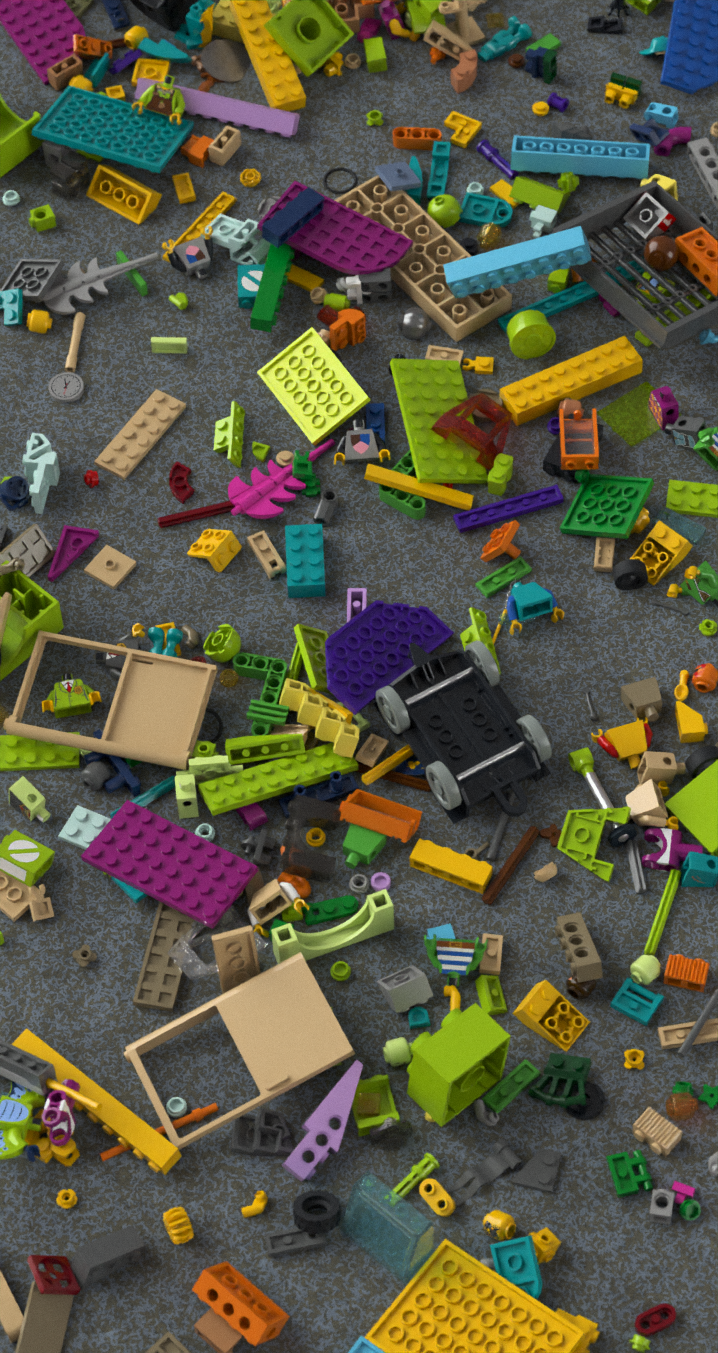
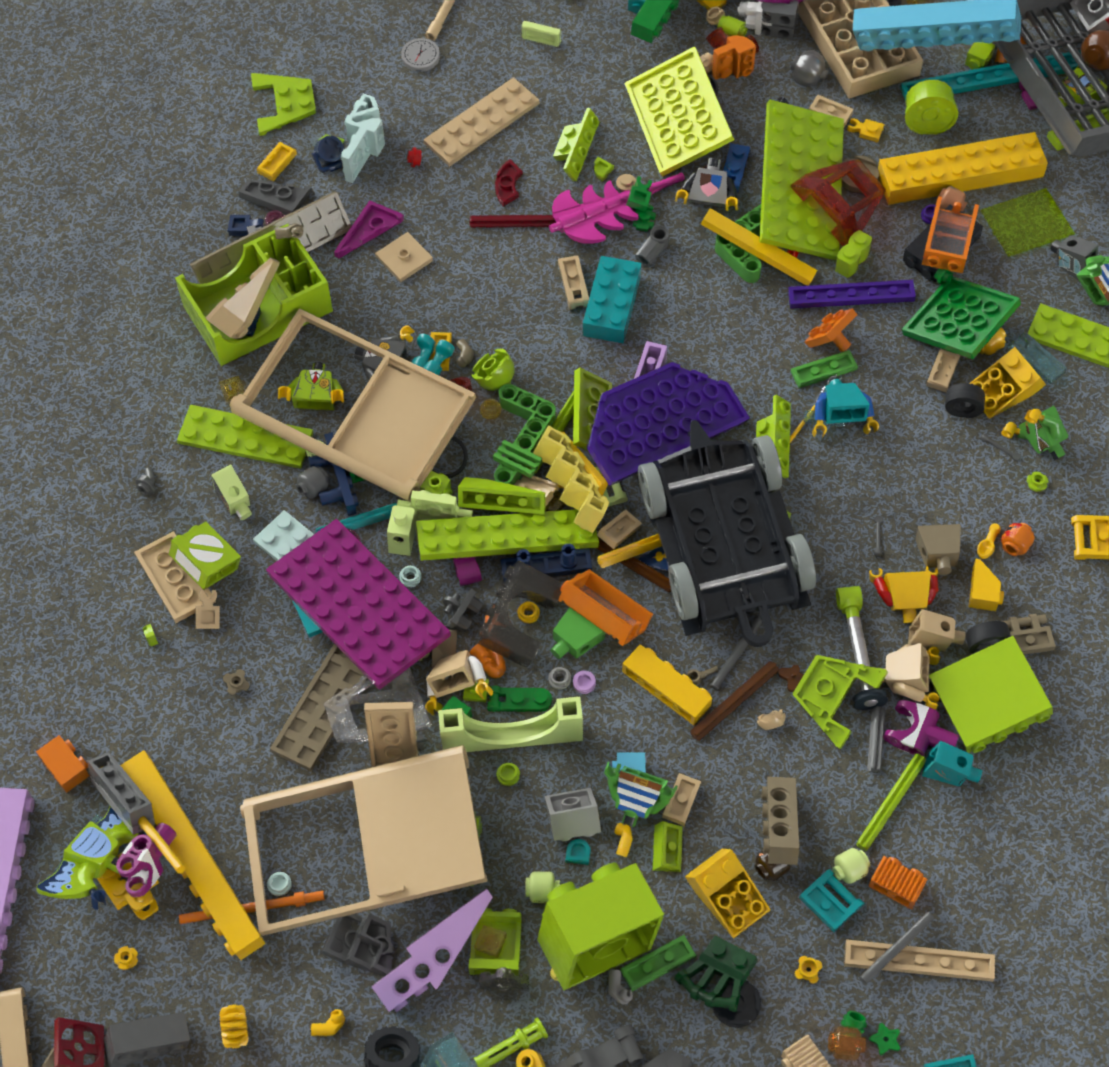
camera: 15 degrees right, 5 degrees up
(217, 547) = (522, 262): yellow bracket -> none
(662, 402) = (1053, 215): magenta torso -> none

